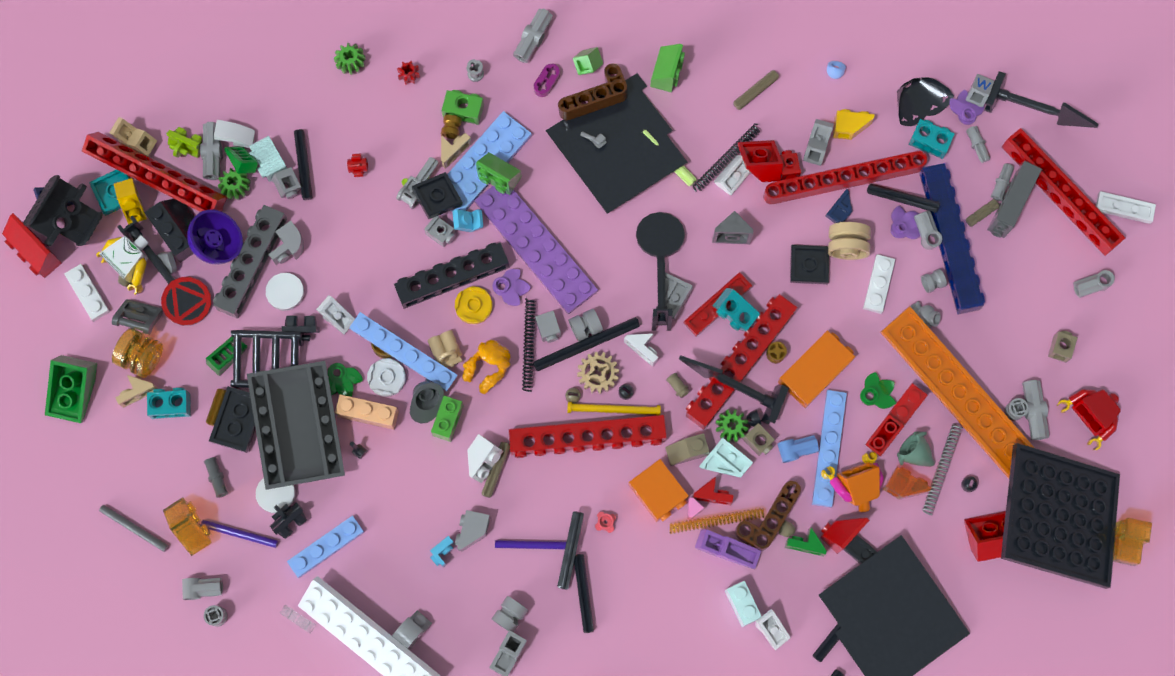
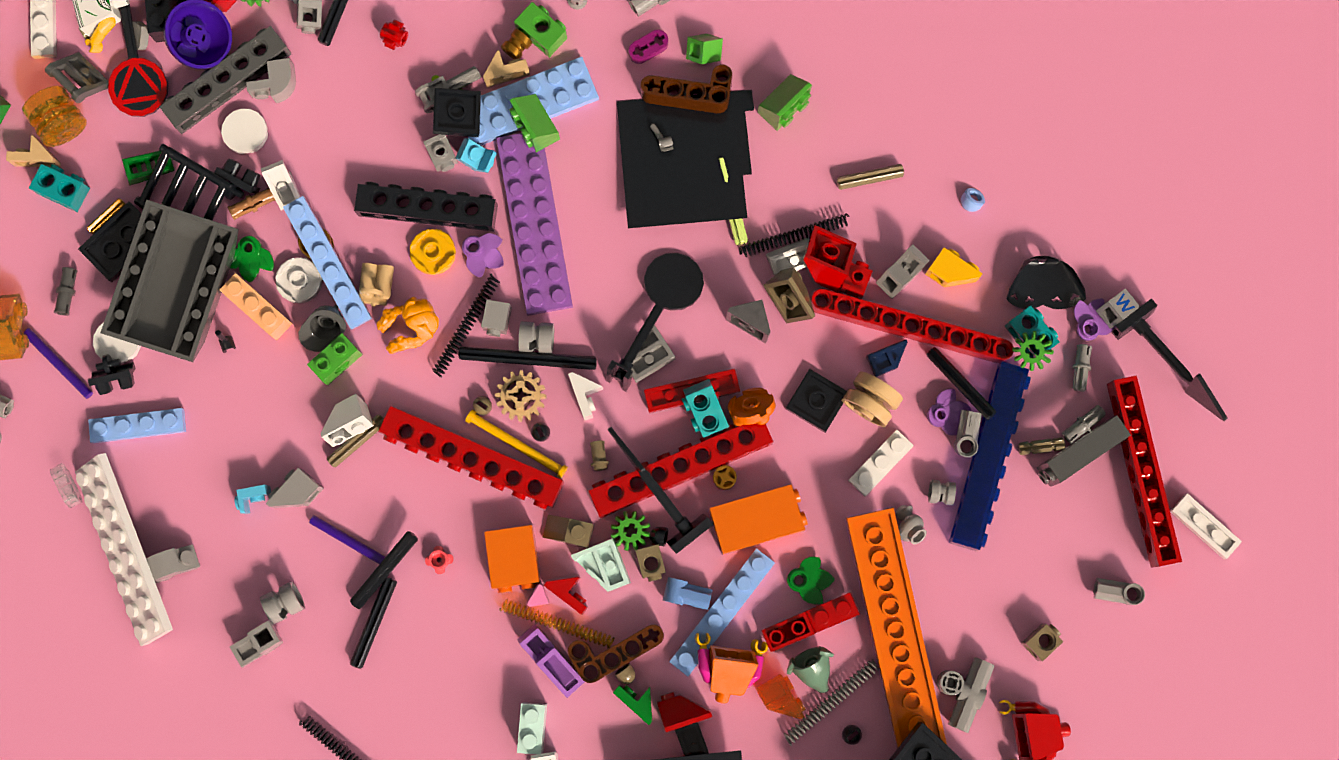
camera: 30 degrees right, 5 degrees up
(320, 340) = (251, 203): none -> medium nougat pin
(750, 200) = (790, 296): none -> dark tan slope
(762, 297) = (743, 411): none -> orange plate
(939, 154) = (1038, 345): none -> bright green gear

